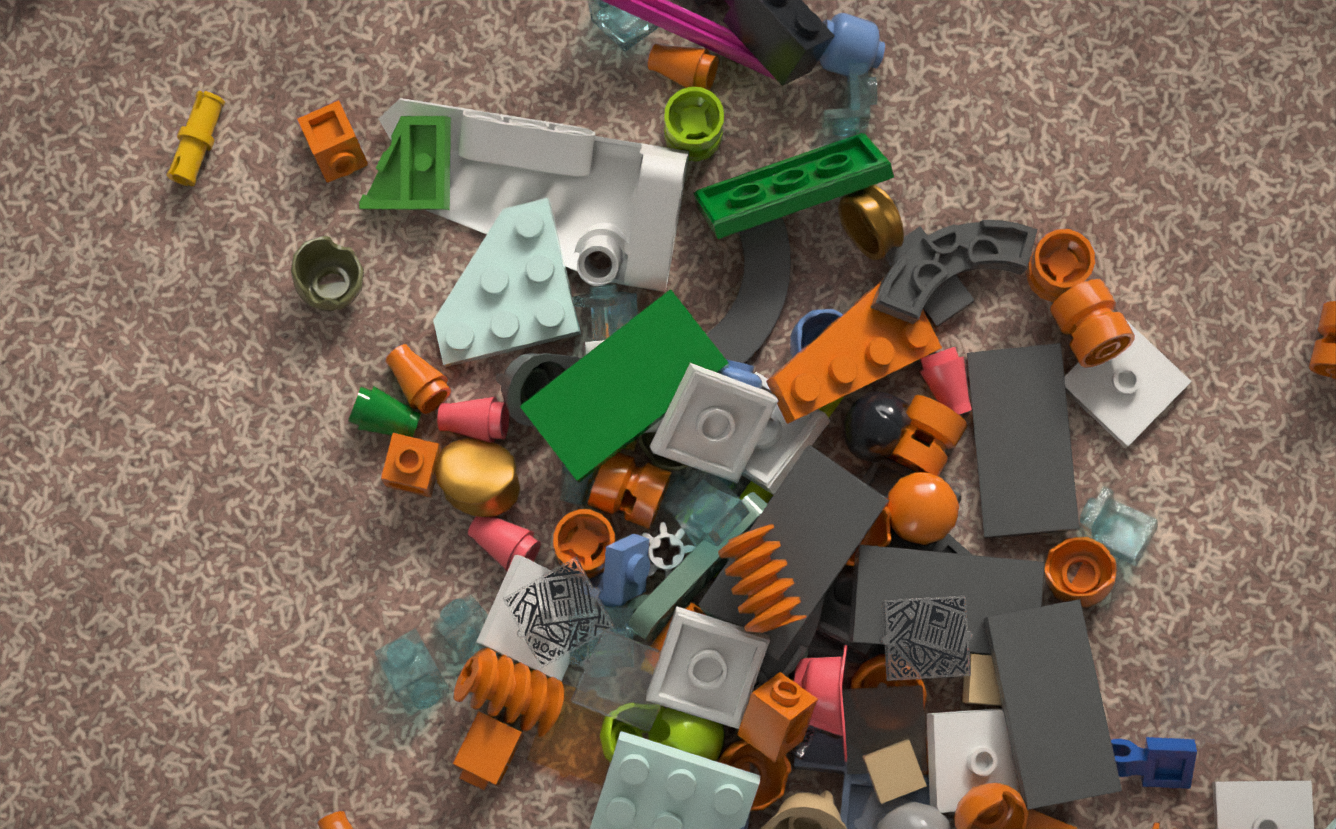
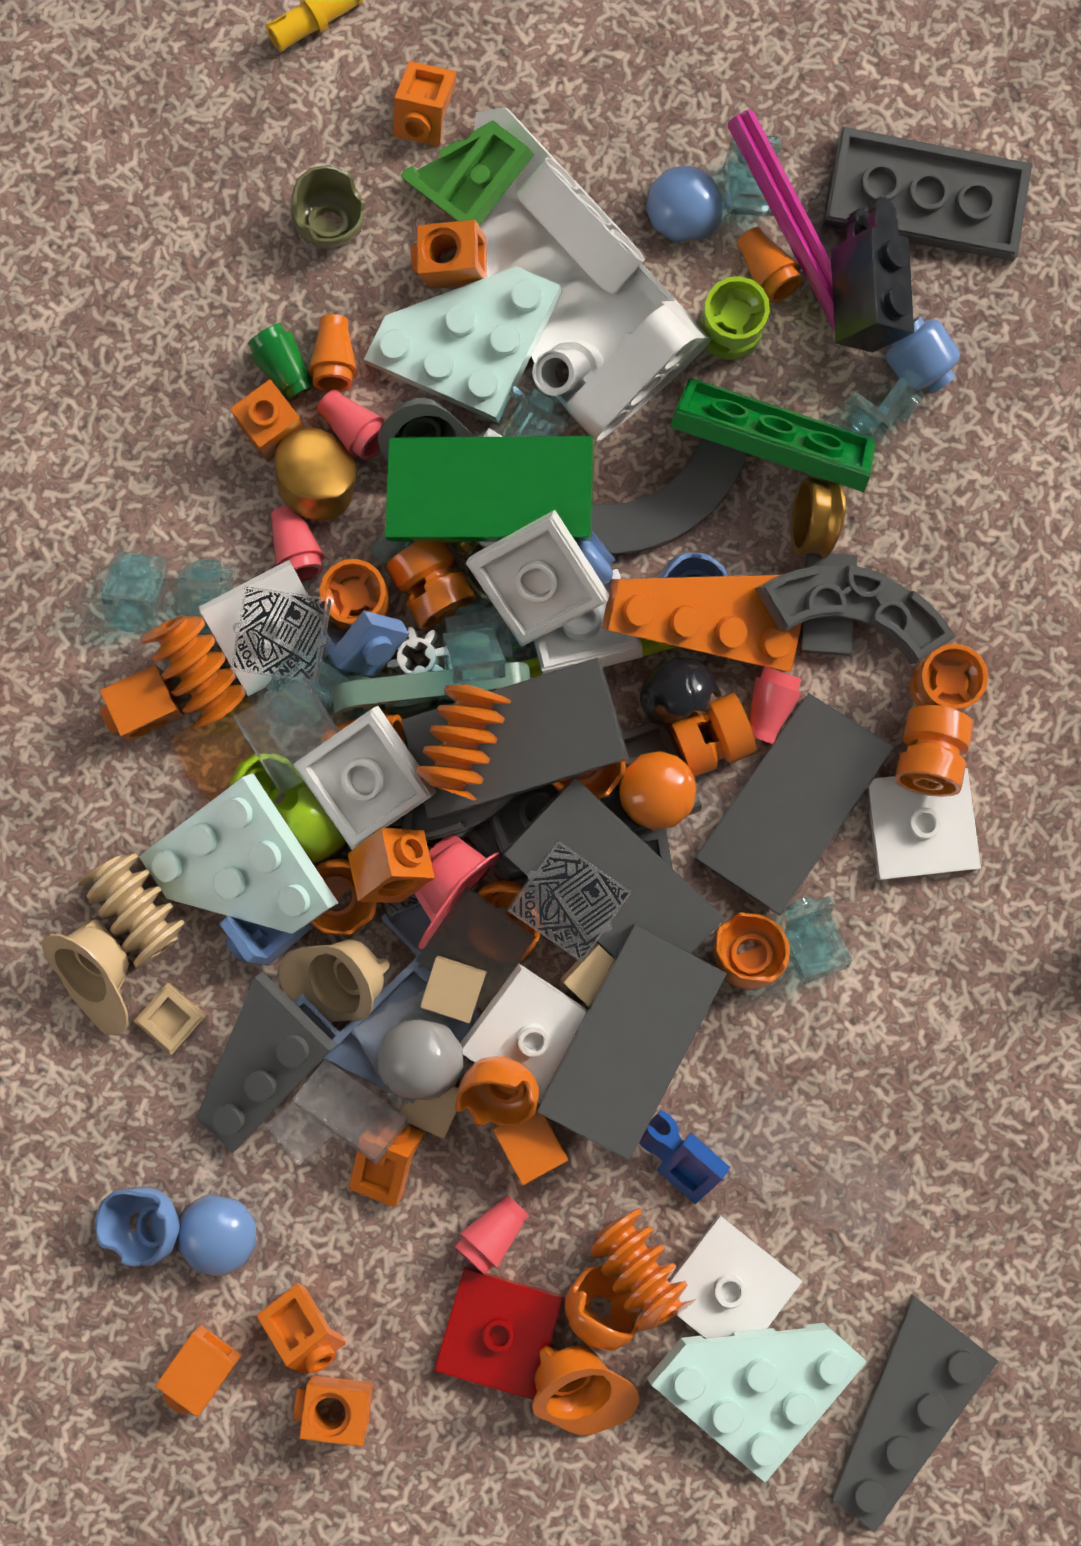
camera: 40 degrees right, 5 degrees up
(466, 233) = (466, 266): none -> orange brick
(586, 69) = (684, 204): none -> medium blue hair

